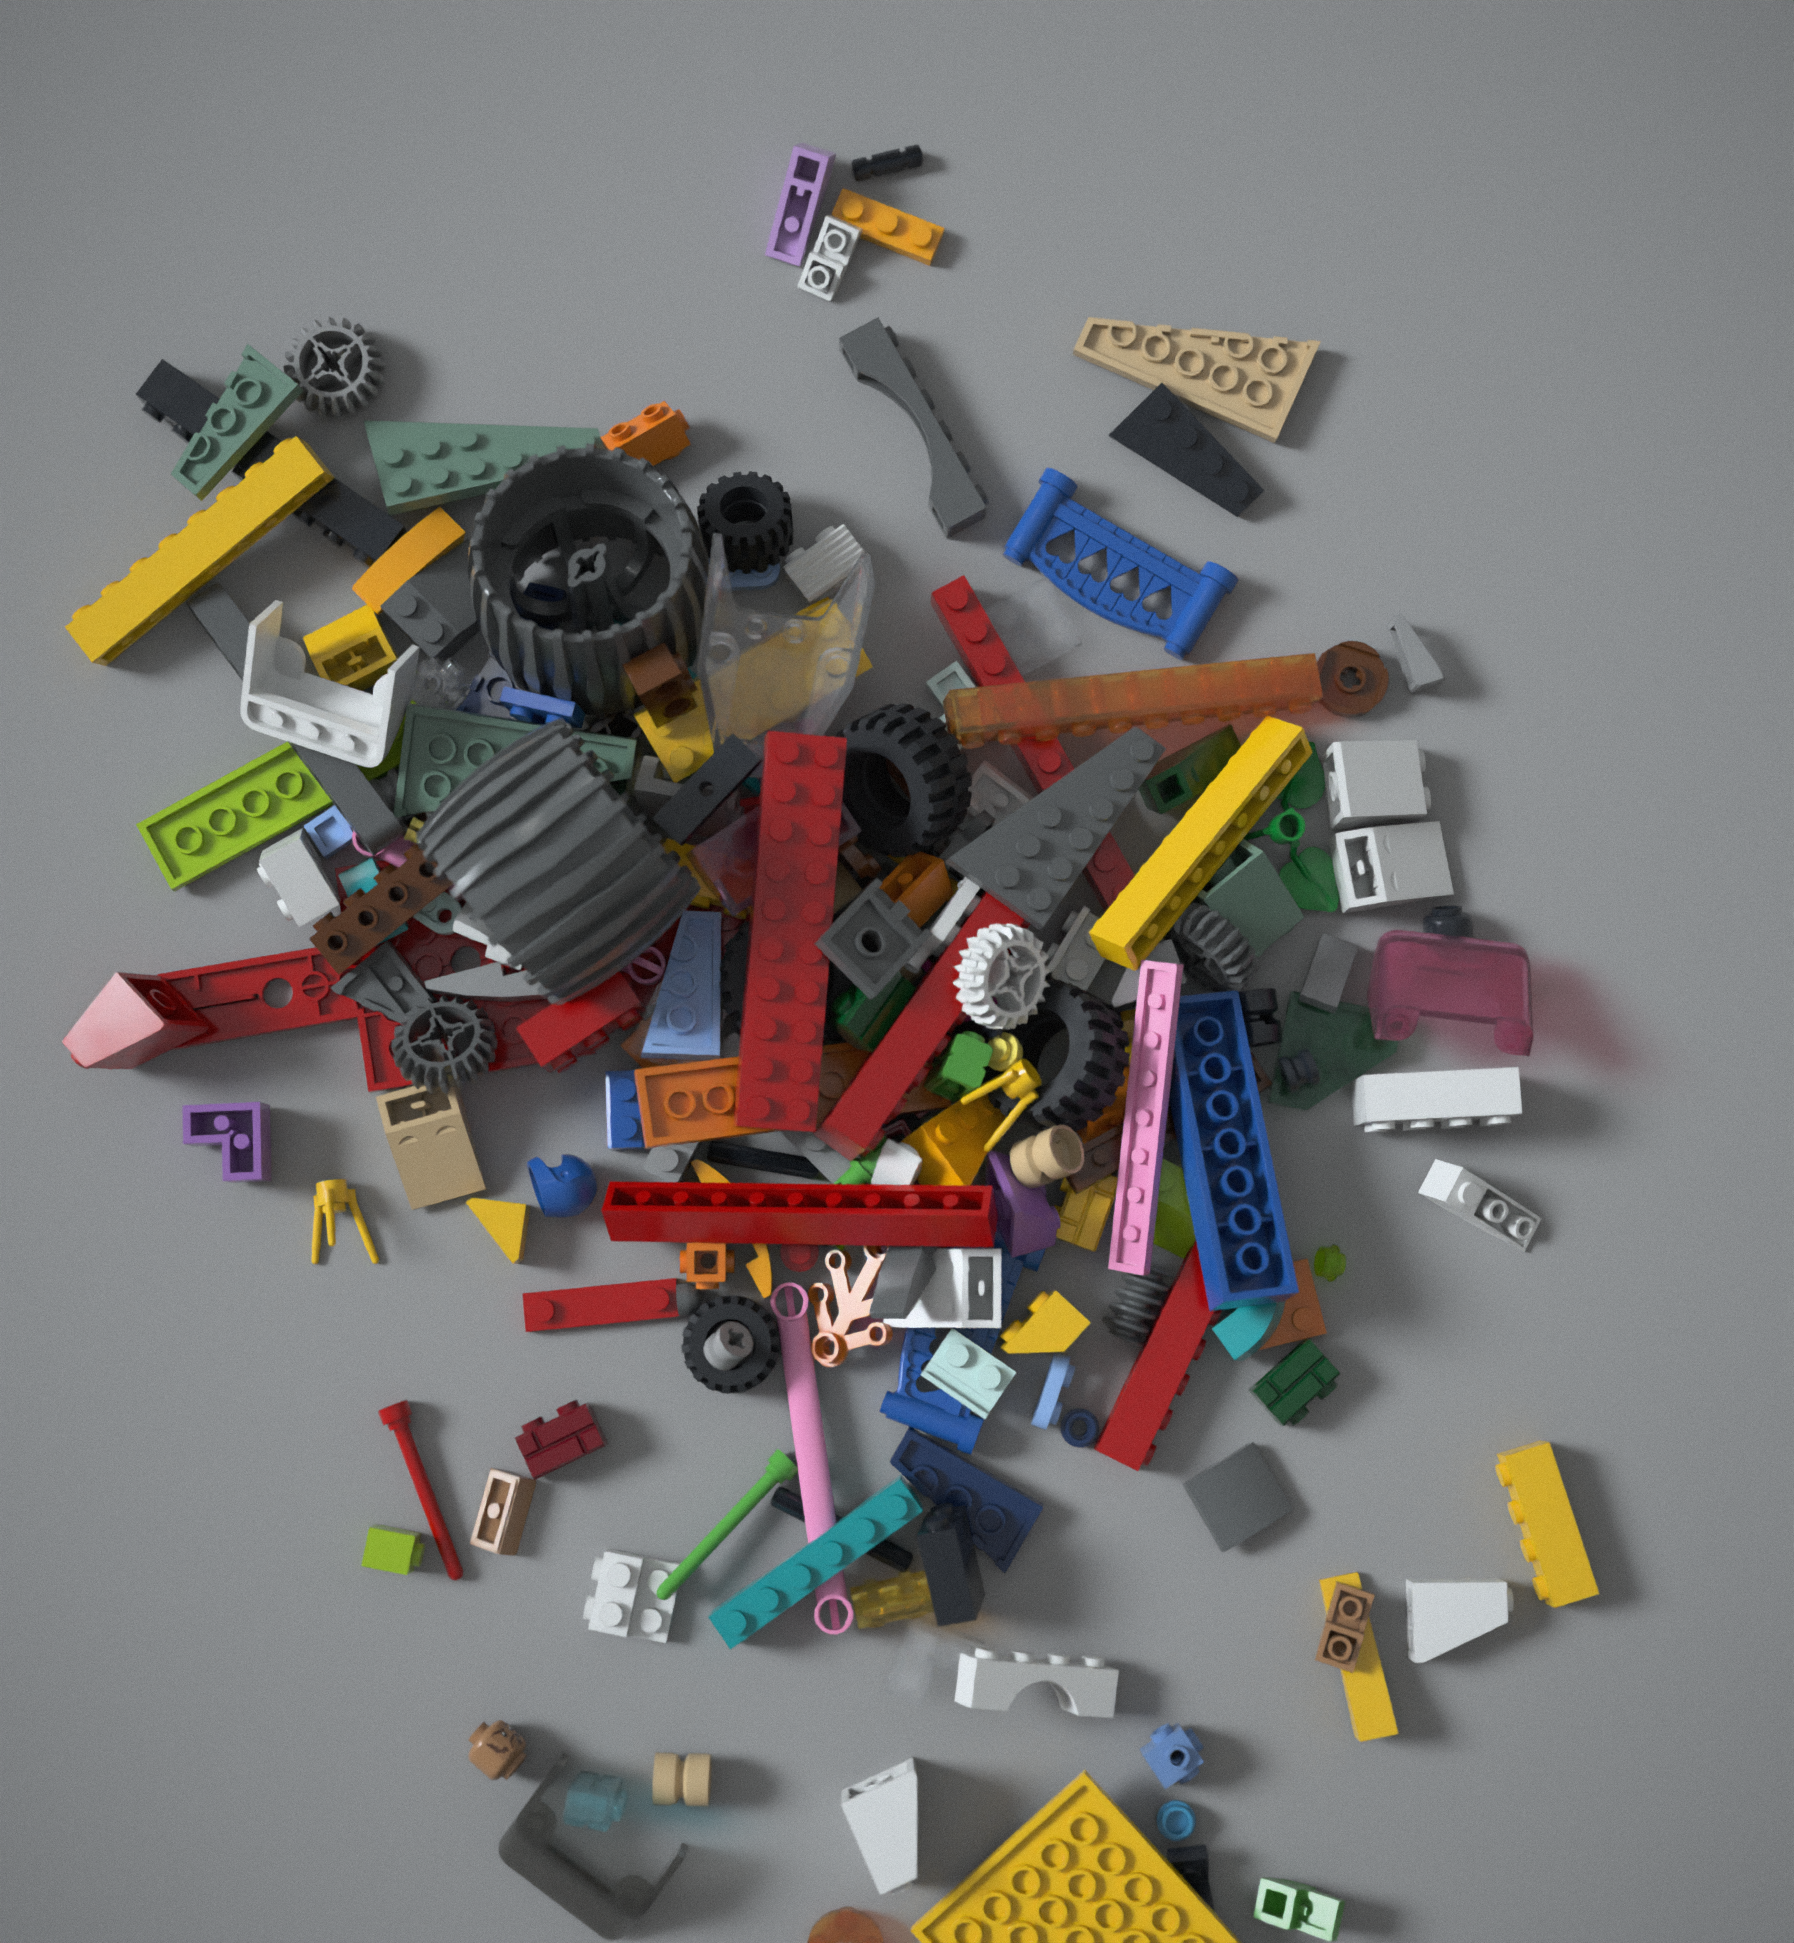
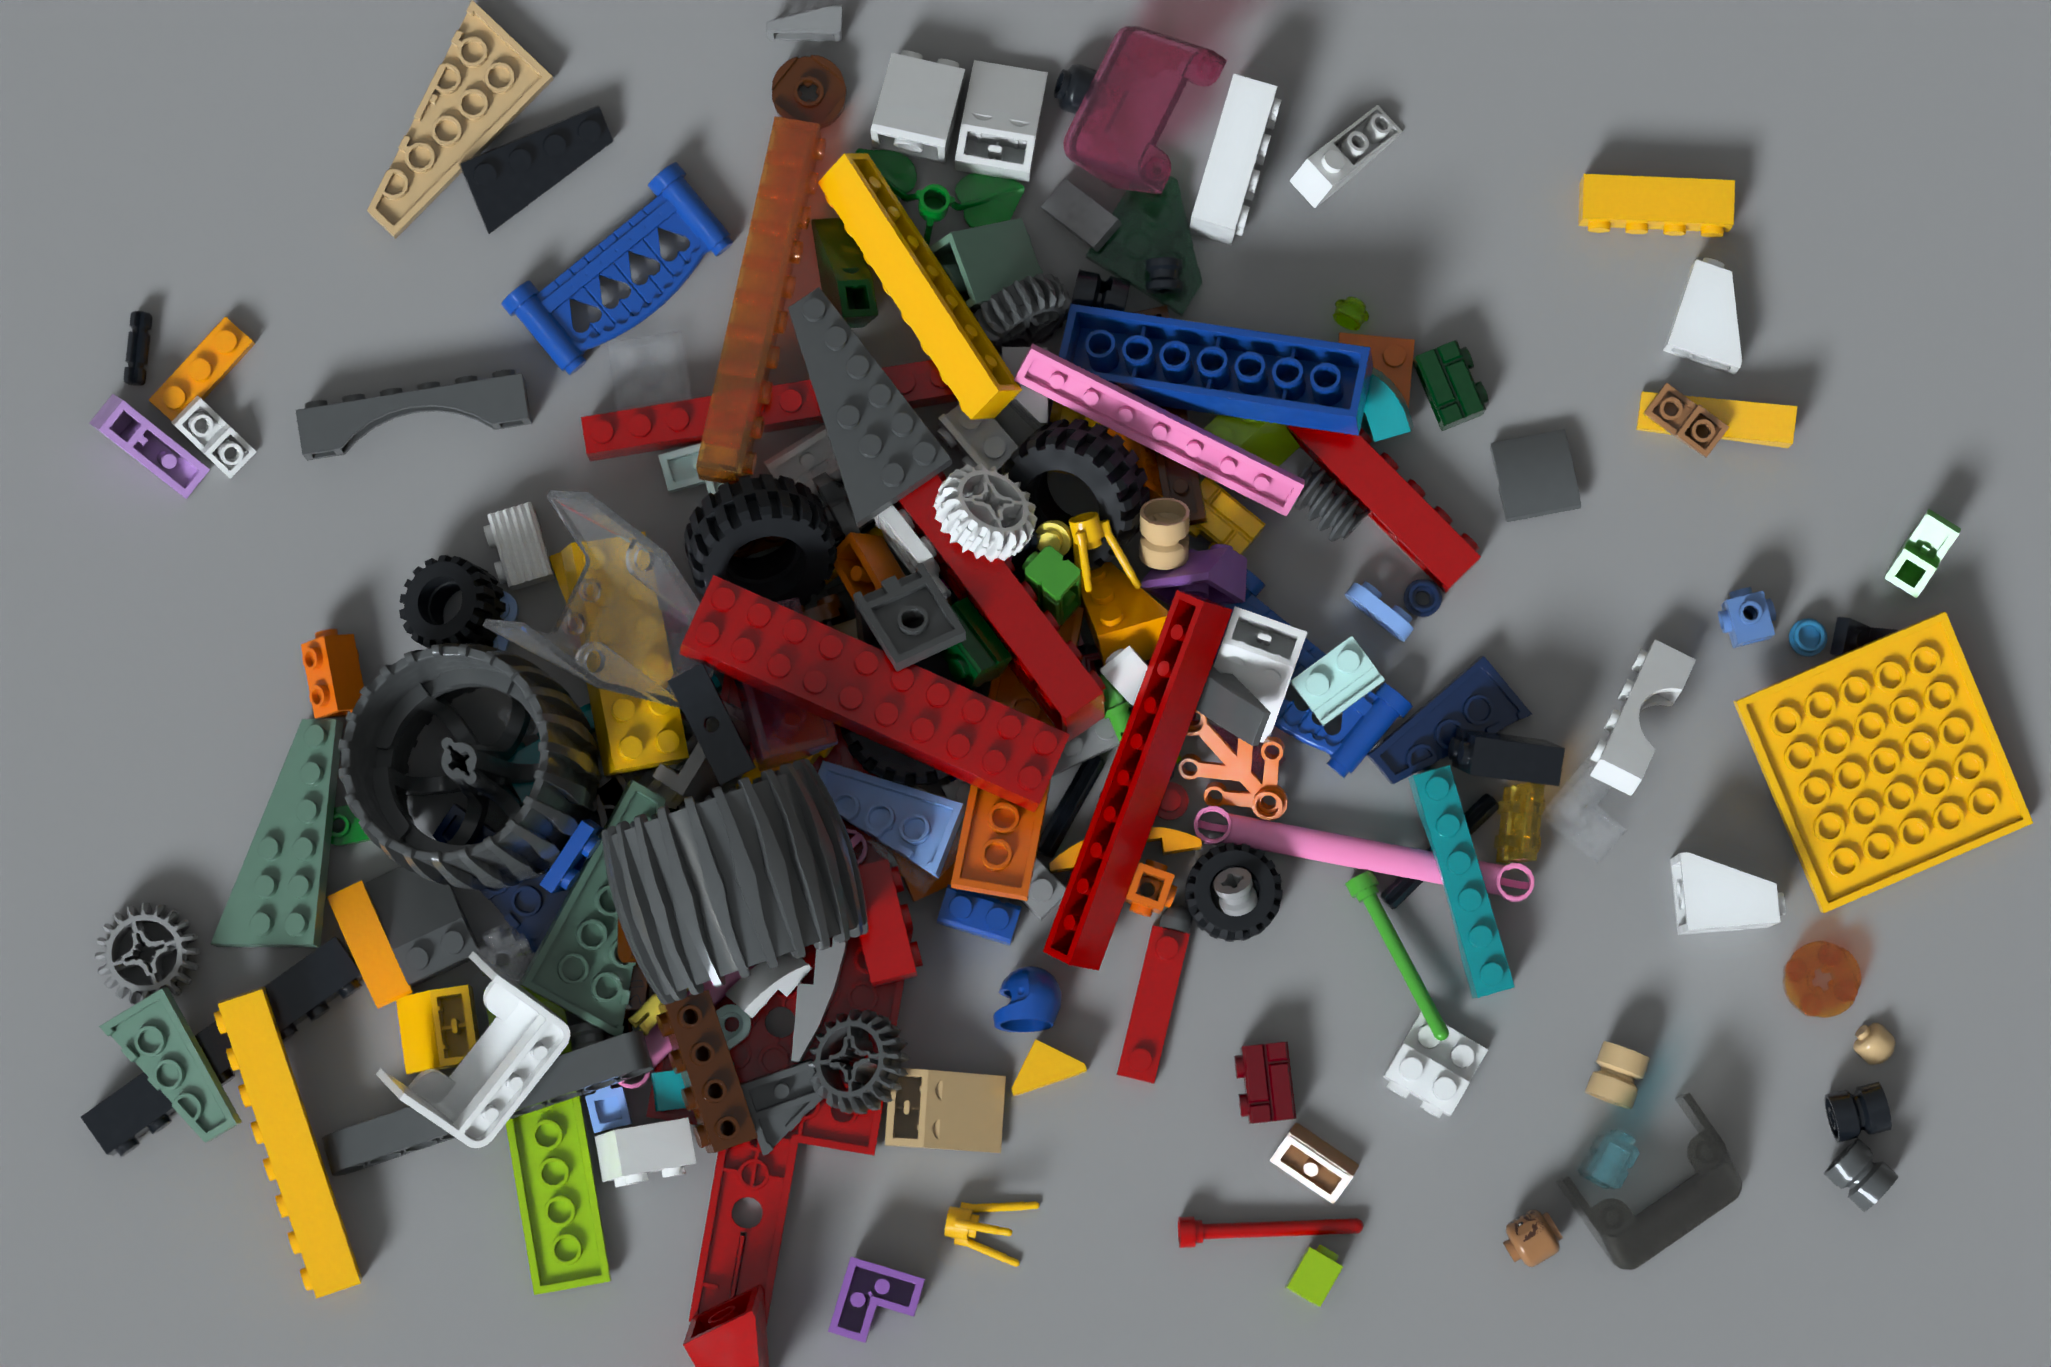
camera: 70 degrees left, 0 degrees up
(662, 684) = (599, 729): reddish brown brick -> none
(1048, 1327) = (1320, 591): yellow slope -> none

